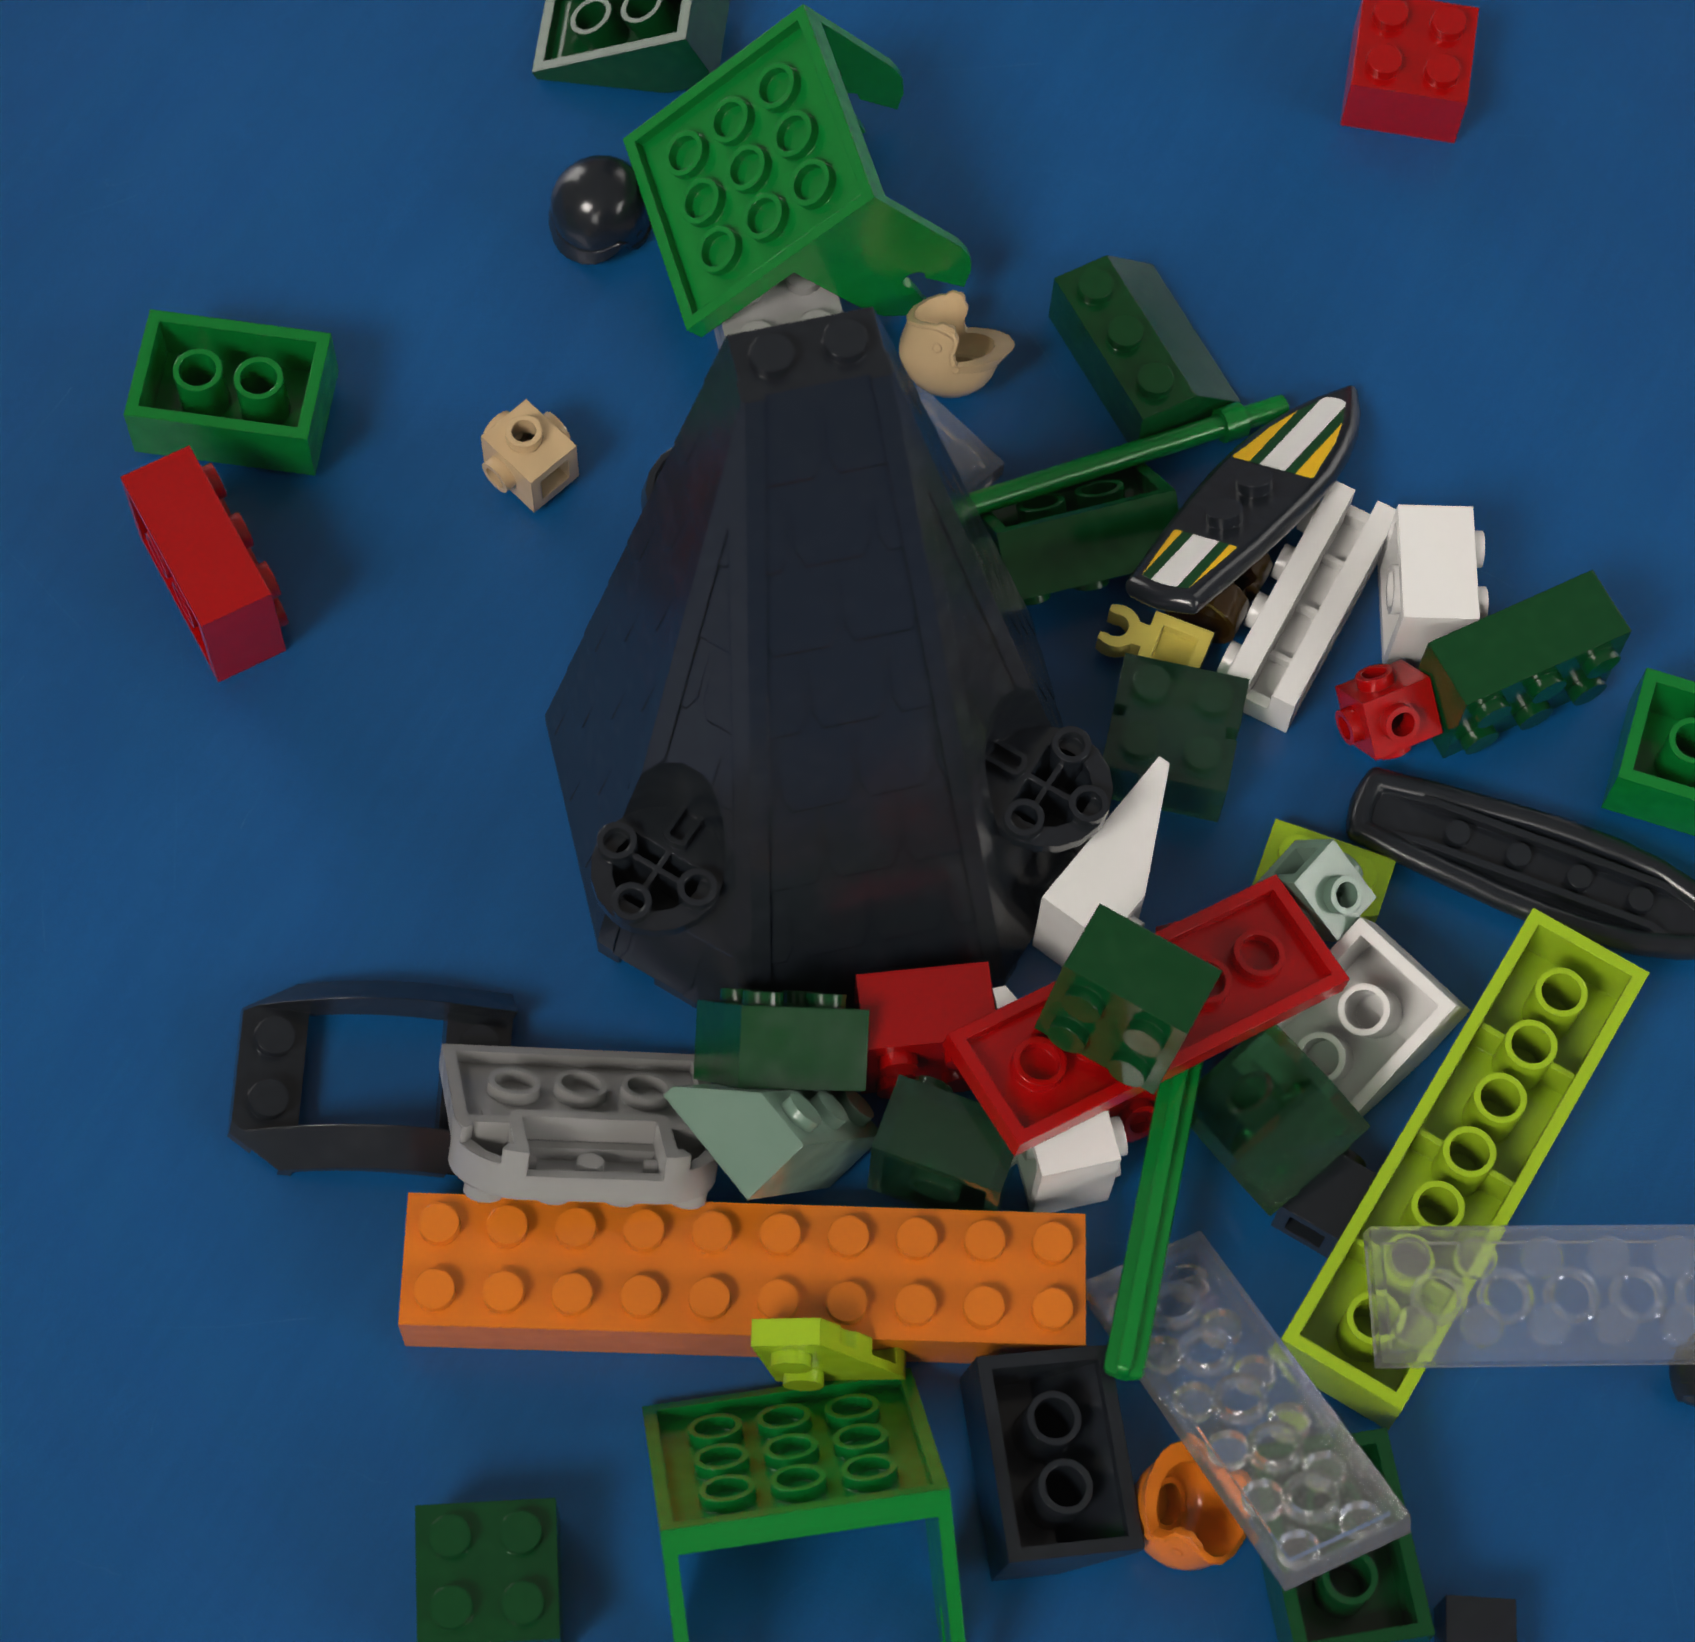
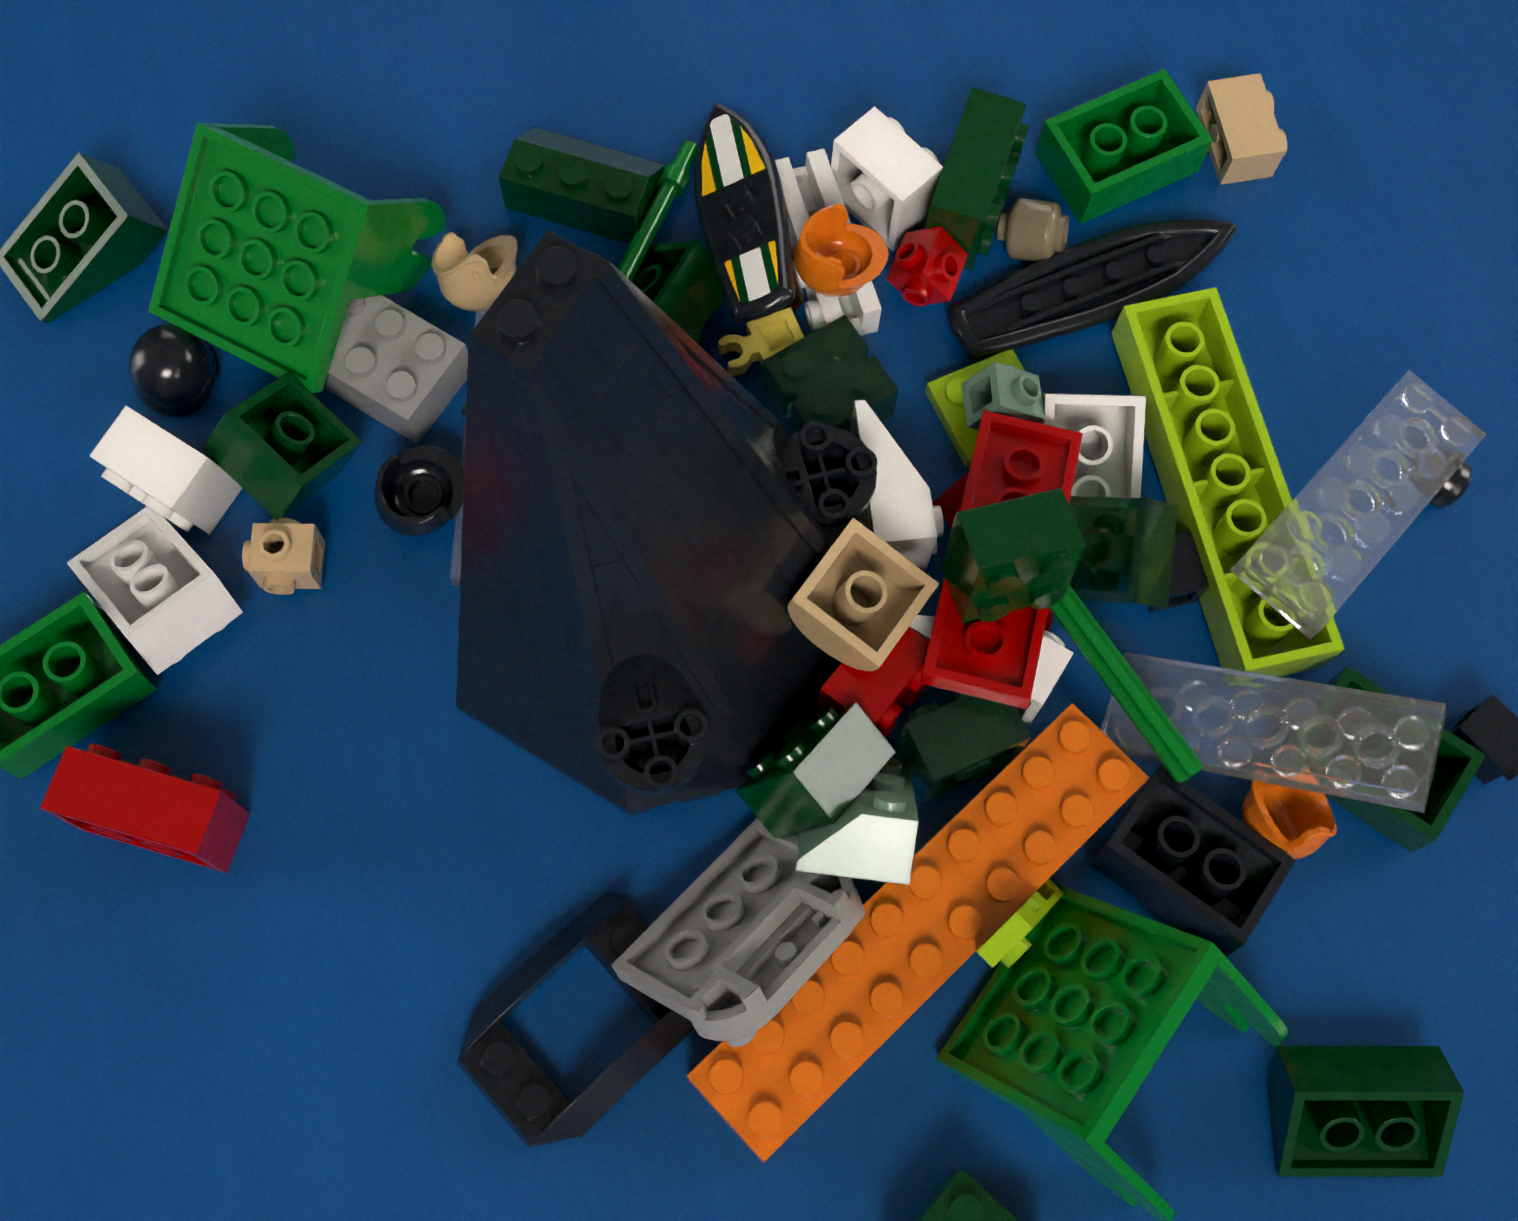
camera: 45 degrees left, 5 degrees up
(395, 387) = (155, 588): none -> white slope
(498, 293) = (164, 472): none -> white brick
(617, 353) = (281, 445): none -> dark green brick
(962, 917) = (860, 599): none -> tan brick
(1290, 613) = (837, 255): none -> orange helmet
(1539, 768) = (1033, 229): none -> dark tan head

